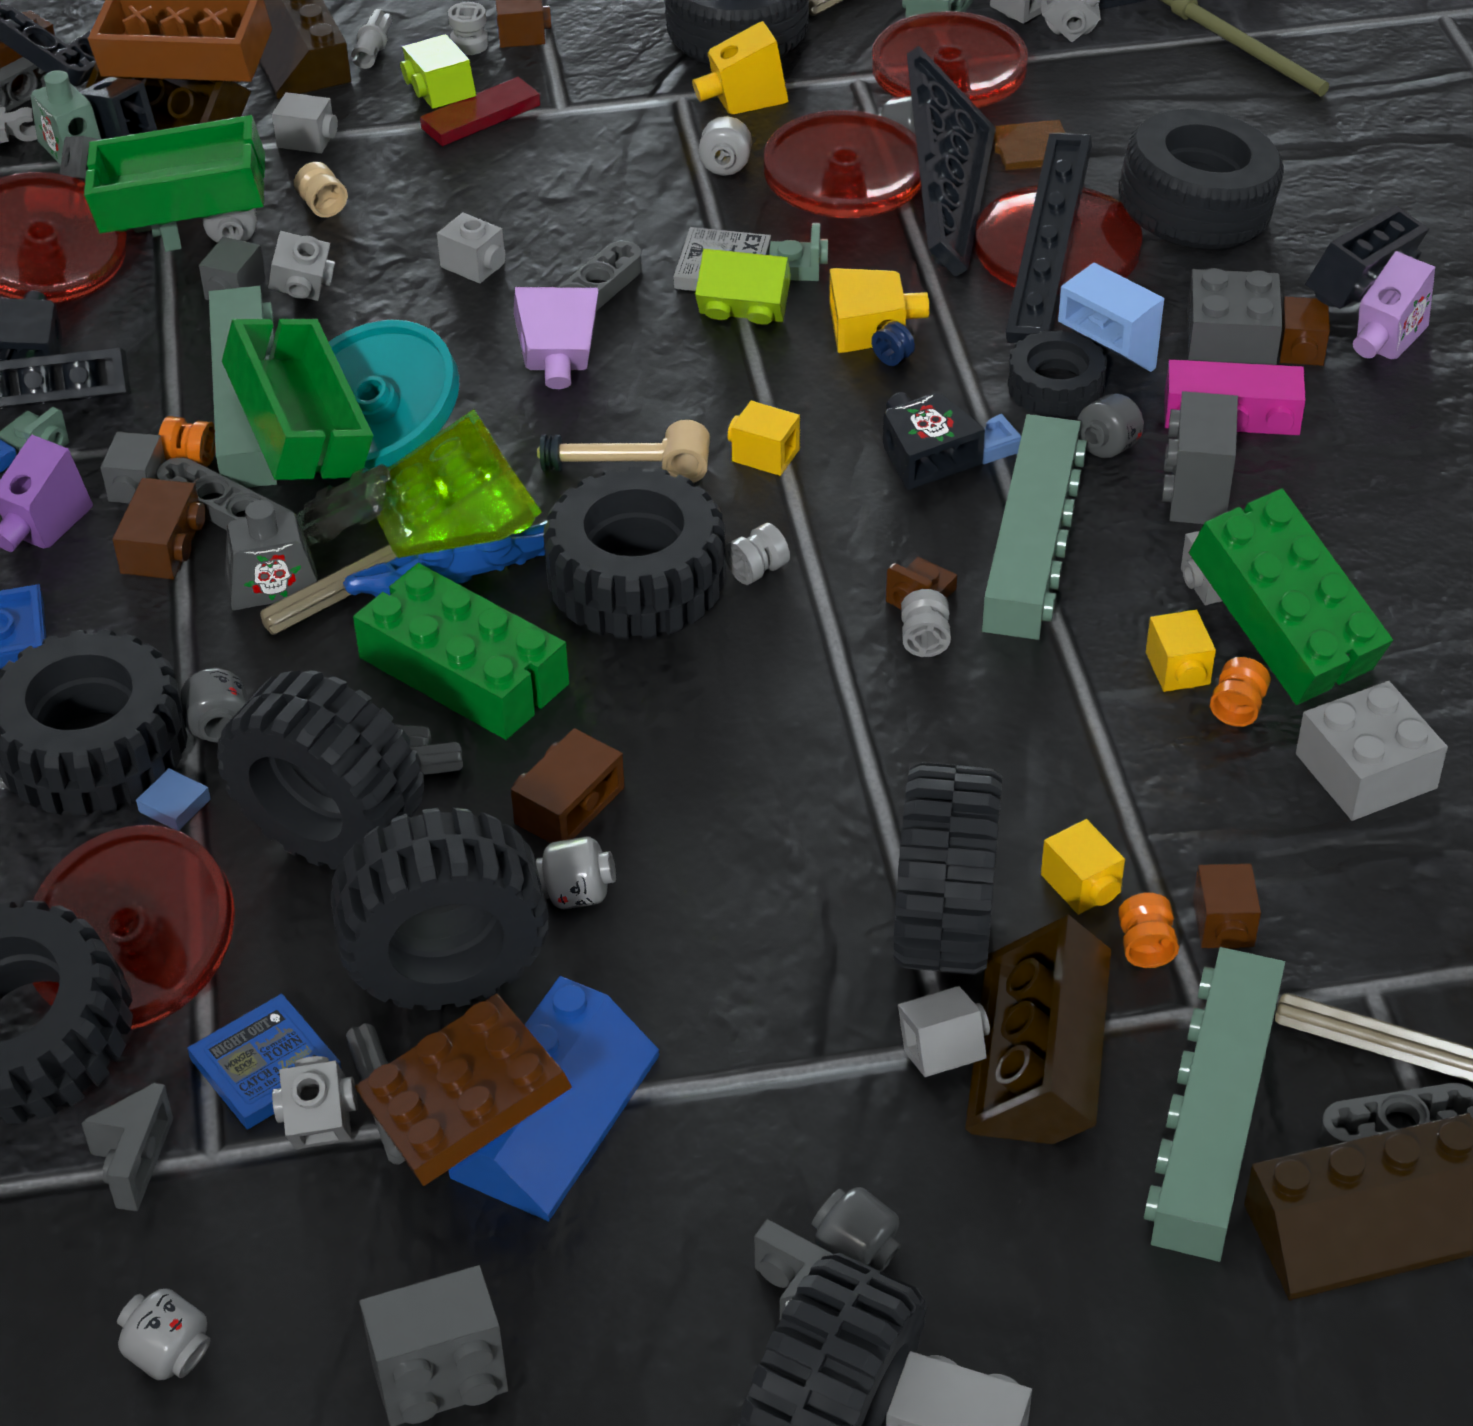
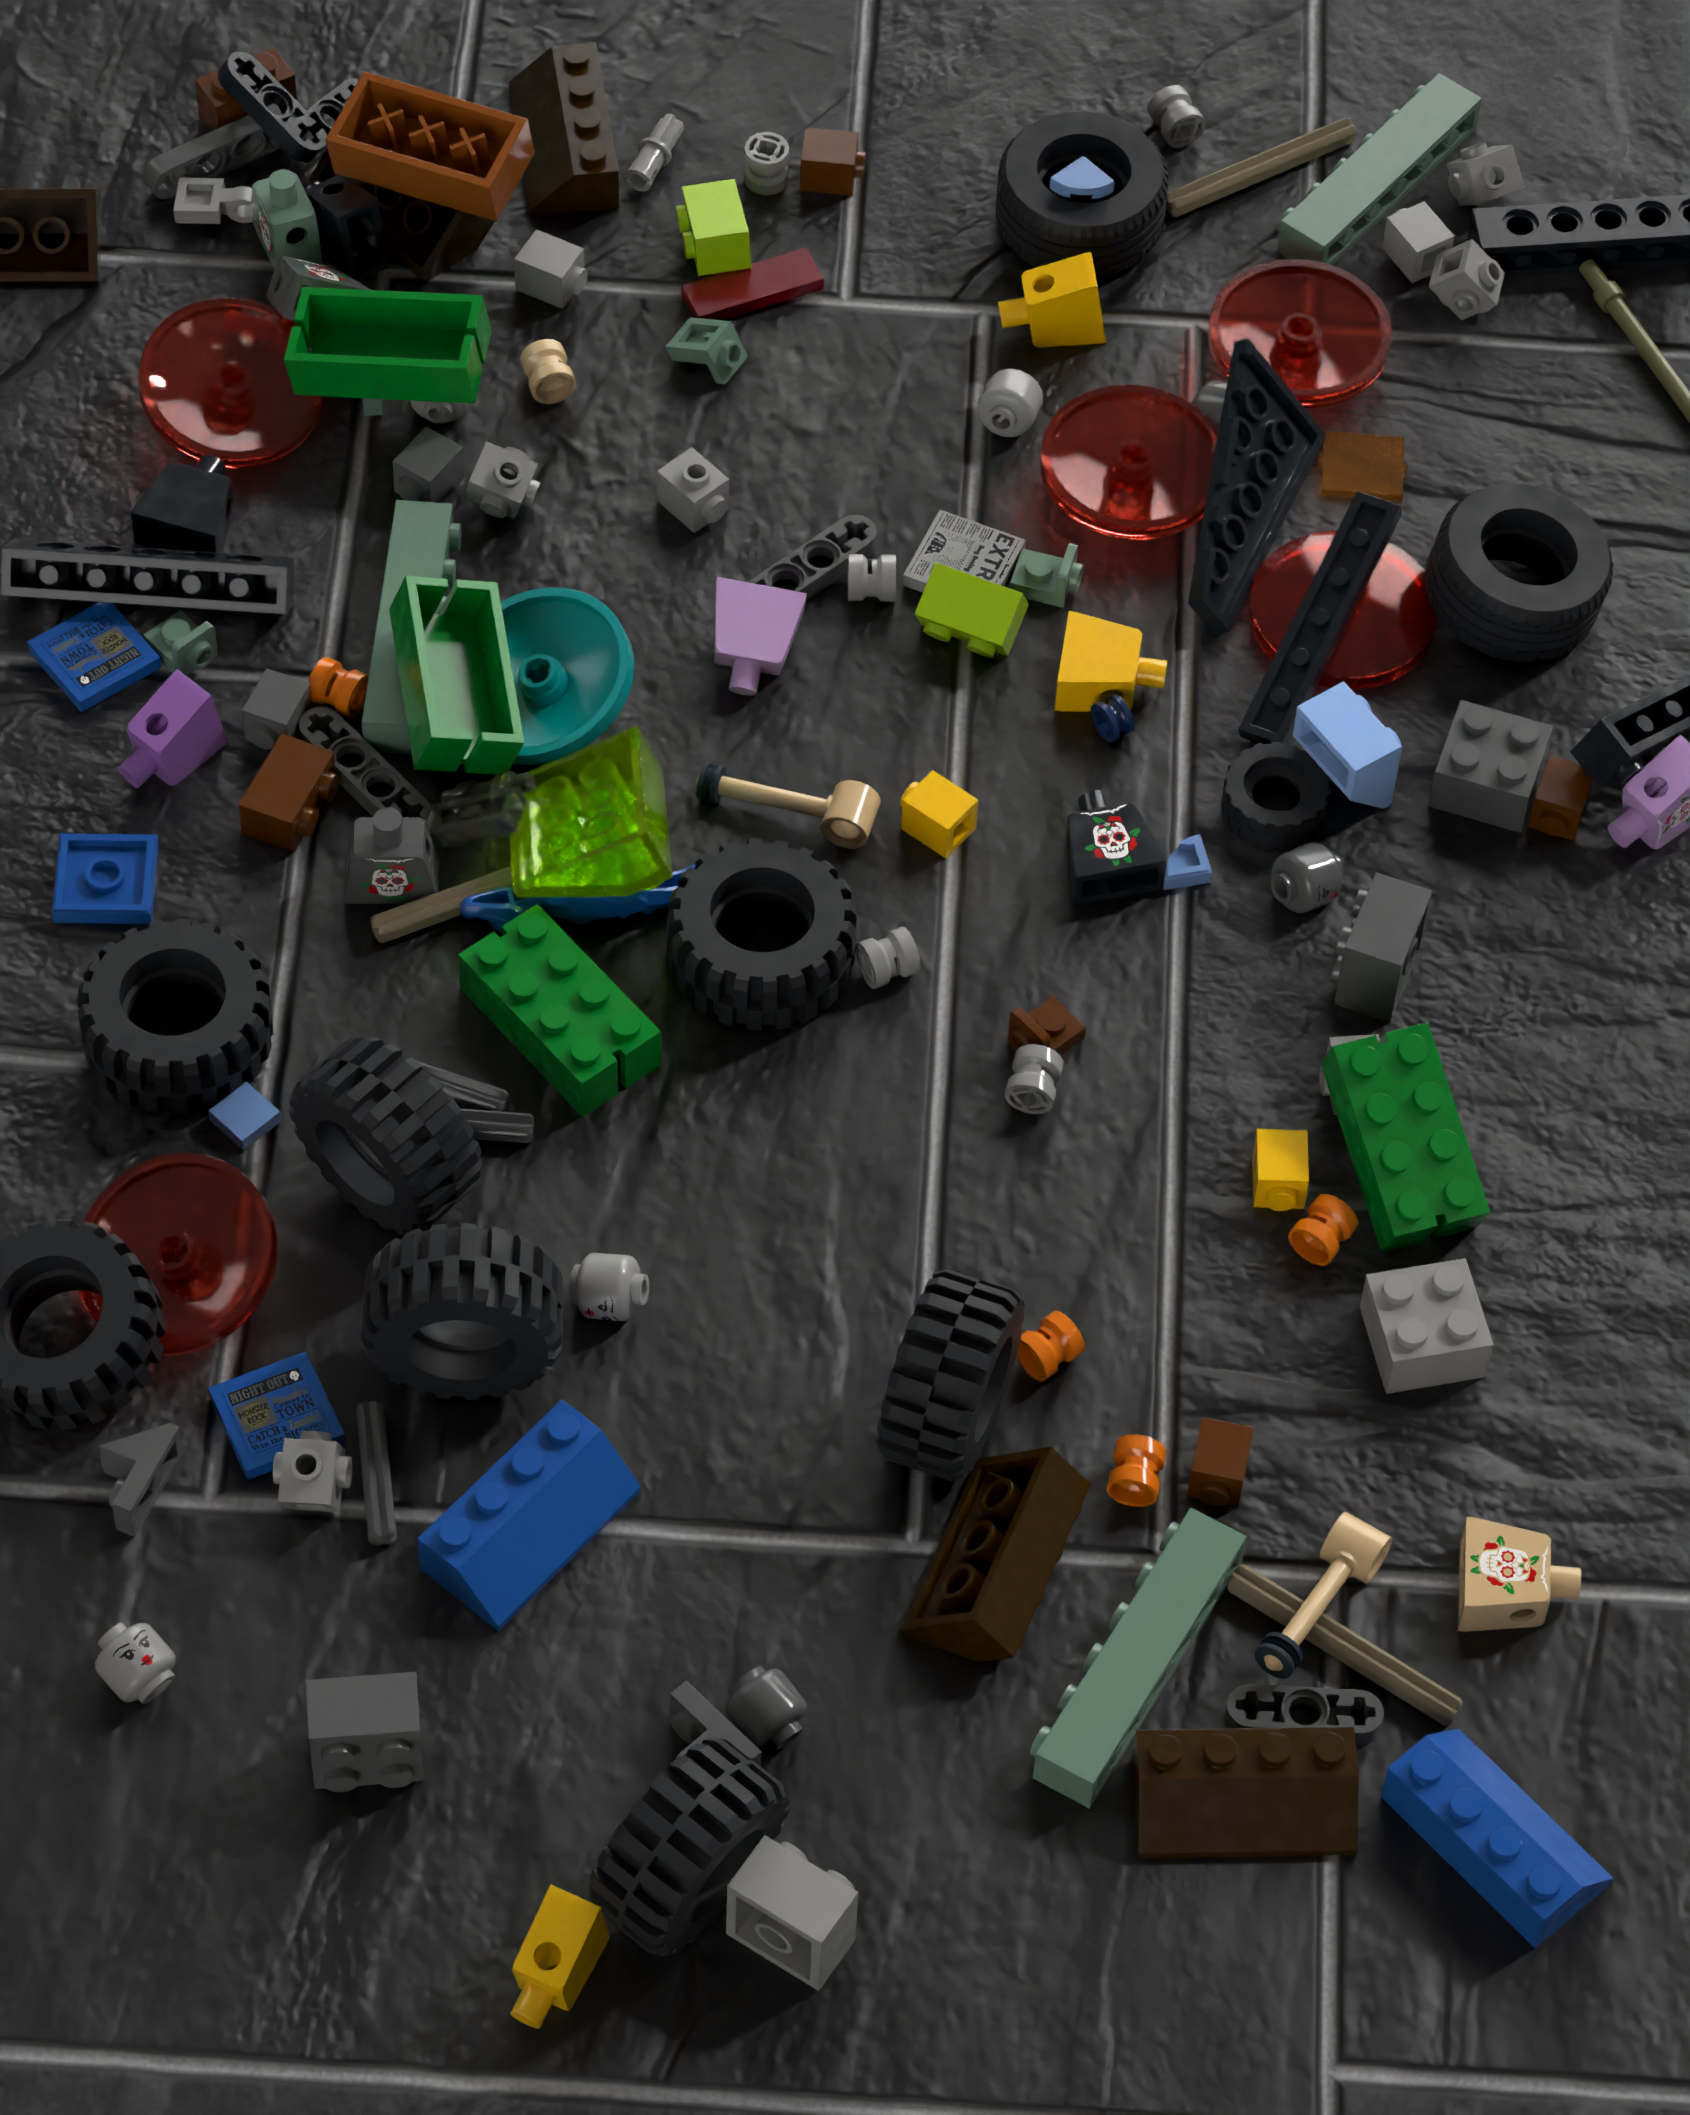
camera: 10 degrees right, 10 degrees up
(211, 701) = (304, 1021): dark grey head -> none
(456, 147) = (711, 344): none -> sand green bracket
(462, 1088) = (443, 1494): reddish brown plate -> none
(567, 787) = (625, 1191): reddish brown brick -> none
(647, 281) = (871, 577): none -> light grey wheel
(943, 1031) = (906, 1531): light grey brick -> none
(1023, 838) = (1049, 1345): none -> orange wheel
(1032, 529) = (1183, 985): sand green brick -> none
(1082, 866) = (1097, 1389): yellow brick -> none
(1268, 395) = (1457, 867): dark pink brick -> none
(1388, 958) = (1353, 1551): none -> tan piece

